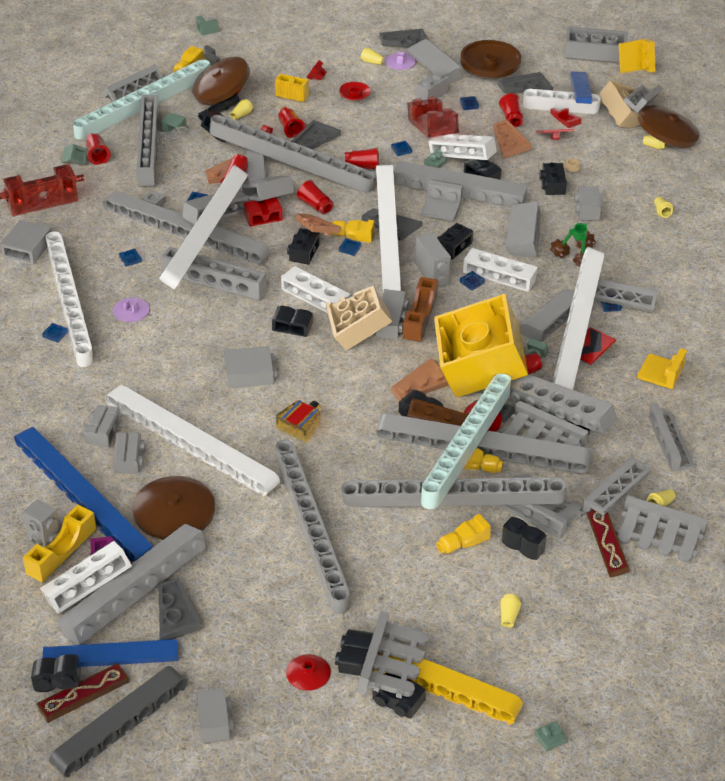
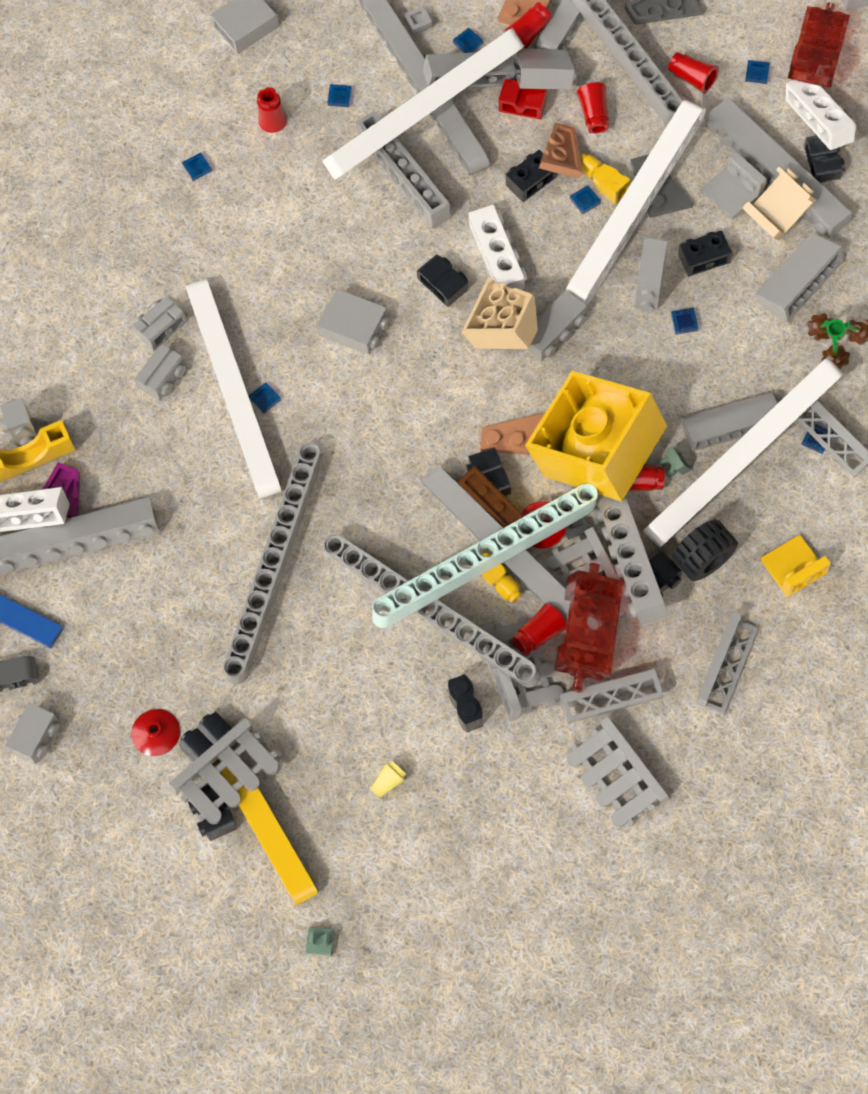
camera: 40 degrees right, 25 degrees up
(69, 300) = (255, 78): white beam -> none
(82, 493) = (86, 398): blue beam -> none
(89, 277) = (270, 111): none -> red plant
(131, 309) = (293, 172): lavender piece -> none
(171, 503) = (162, 463): reddish brown dish -> none
(176, 611) = (82, 593): dark grey wing -> none
(221, 434) = (264, 398): none -> tile
(299, 420) = (356, 422): clear yellow torso -> none
(418, 317) = (571, 352): dark orange arch -> none
(435, 159) = (781, 112): sand green tile -> none
(465, 535) = (414, 664): yellow piece -> none
(480, 196) = (781, 204): none -> panel
(500, 269) = (739, 352): white brick -> none
(538, 464) = (539, 629): none -> red plant
(585, 459) = (585, 650): none -> clear red brick
(595, 345) = (740, 493): red piece -> none
(604, 377) = (705, 550): none -> black tyre
(608, 543) = (550, 757): tile -> none
(662, 498) = (647, 736): light yellow cone -> none

